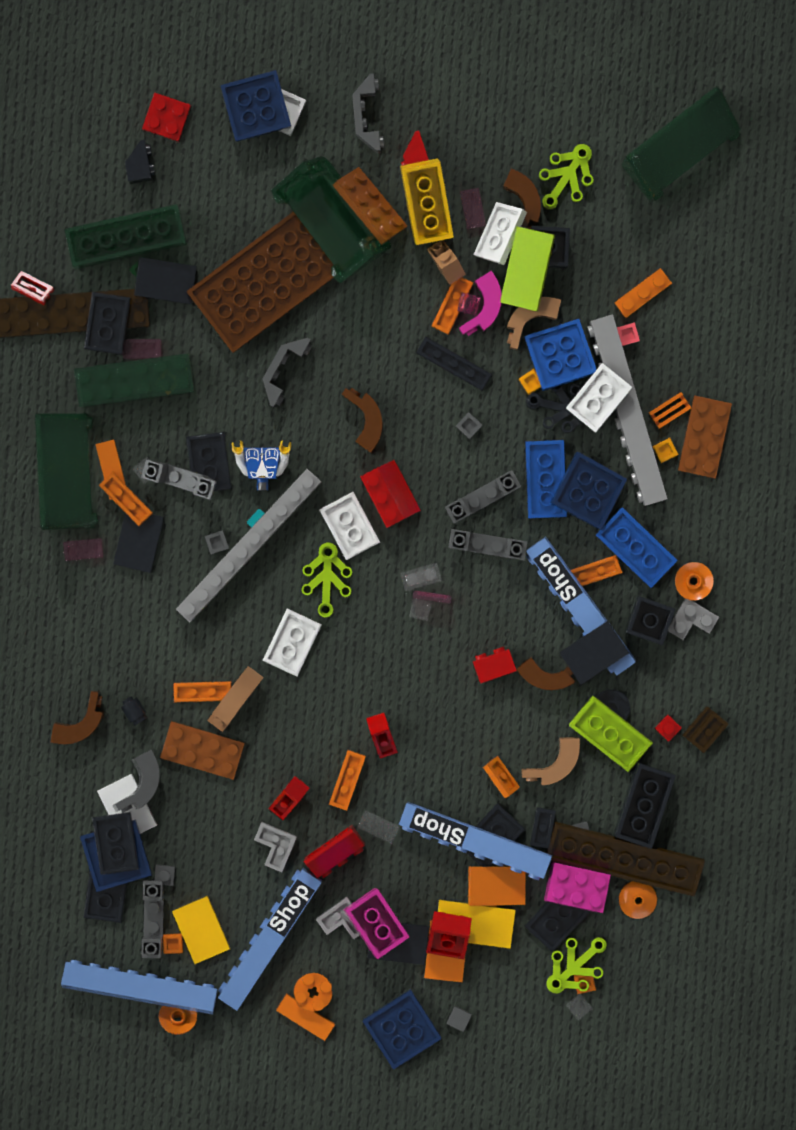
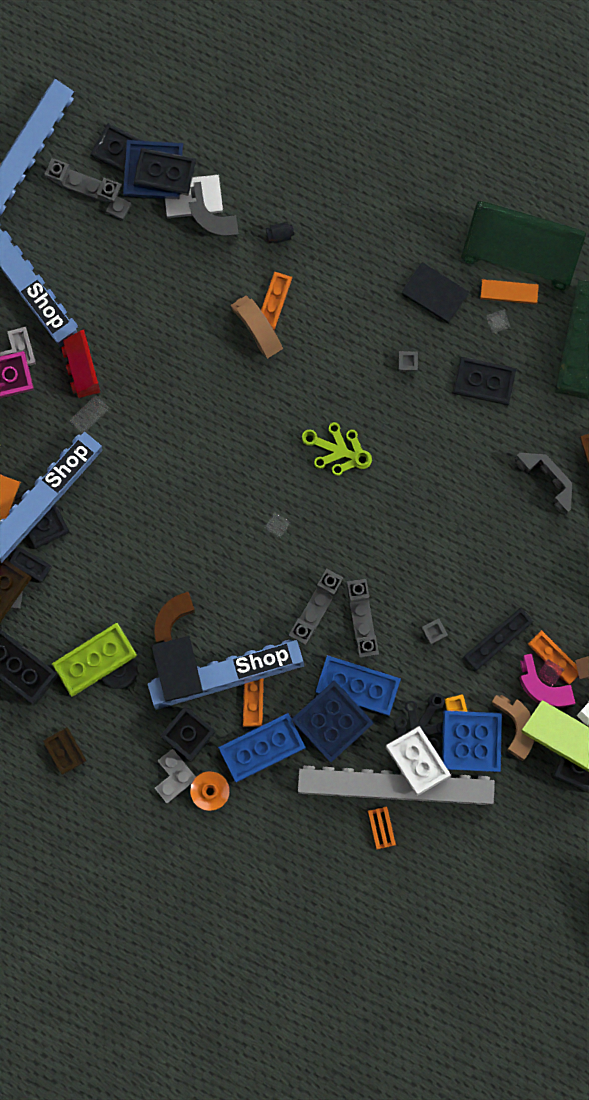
camera: 105 degrees right, 10 degrees down
(74, 733) = (286, 194): reddish brown arch -> none
(83, 549) = (444, 240): clear pink tile -> none
(126, 499) = (477, 293): orange tile -> none
(172, 943) = (53, 193): orange tile -> none
(179, 477) = (491, 332): dark grey slope -> none
(201, 929) = (55, 222): yellow tile -> none
(202, 750) = (220, 281): dark orange plate -> none
(248, 545) = (395, 389): light grey brick -> none
(255, 517) = (417, 404): teal tile -> none
(262, 462) = (467, 427): torso -> none
(279, 841) = (108, 320): light grey plate -> none
(289, 798) = (147, 342): red slope -> none
(292, 642) = (290, 397): white tile -> none
(347, 780) = (143, 401): orange plate -> none
(349, 525) = (379, 488): white tile -> none
(373, 420) = (471, 544): reddish brown arch -> none
(381, 735) = (173, 446): red slope -> none
(390, 493) = (396, 534): red slope -> none
(421, 576) = (307, 536): clear plate -> none
(432, 596) = (285, 539): clear pink tile -> none
(494, 665) = (199, 573): red brick -> none
(501, 777) = (92, 543): orange plate -> none
(566, 760) = (86, 610): medium nougat arch -> none
(628, 334) = (468, 813): coral plate -> none
(643, 293) = (503, 842): orange plate -> none
(665, 450) = (344, 809): light orange tile -> none
(668, 728) = (79, 716): red plate -> none
(704, 437) = (344, 852): dark orange plate -> none

